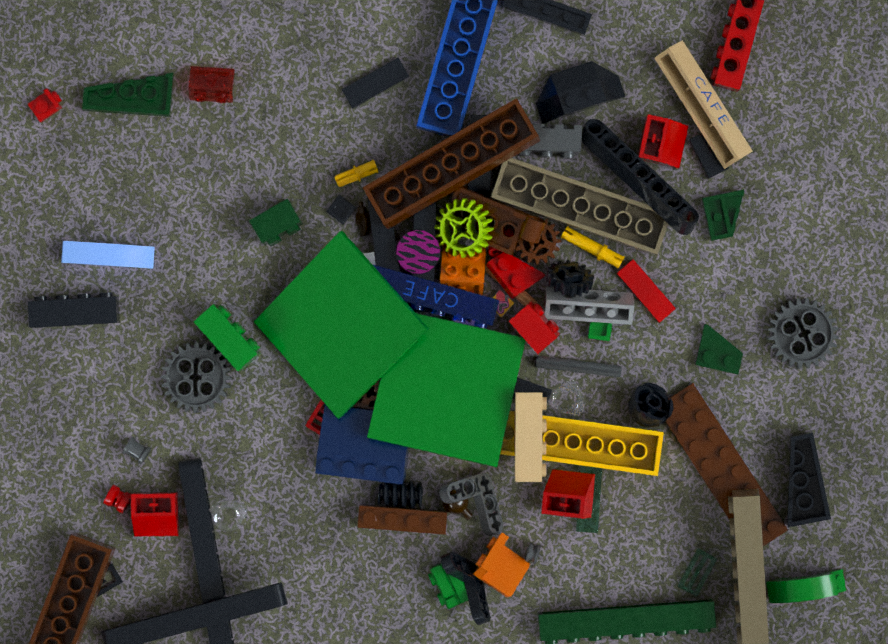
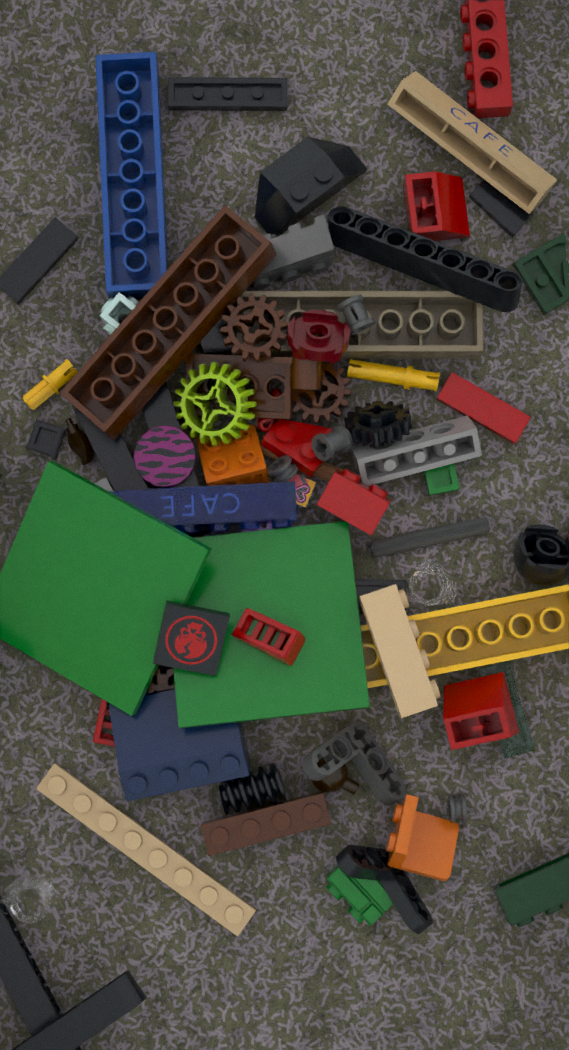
camera: 15 degrees left, 5 degrees down
(316, 508) = (146, 849): none -> tan plate
(395, 382) = (191, 638): none -> tile
(417, 137) = (115, 309): none -> light aqua brick
(459, 411) = (291, 648): none -> red slope
(494, 287) = (282, 469): none -> dark grey bush
(495, 178) = (242, 324): none -> reddish brown gear
(535, 281) = (336, 441): none -> dark grey bush
(549, 219) = (308, 346): none -> dark red plate
(582, 206) = (363, 322): none -> dark grey bush

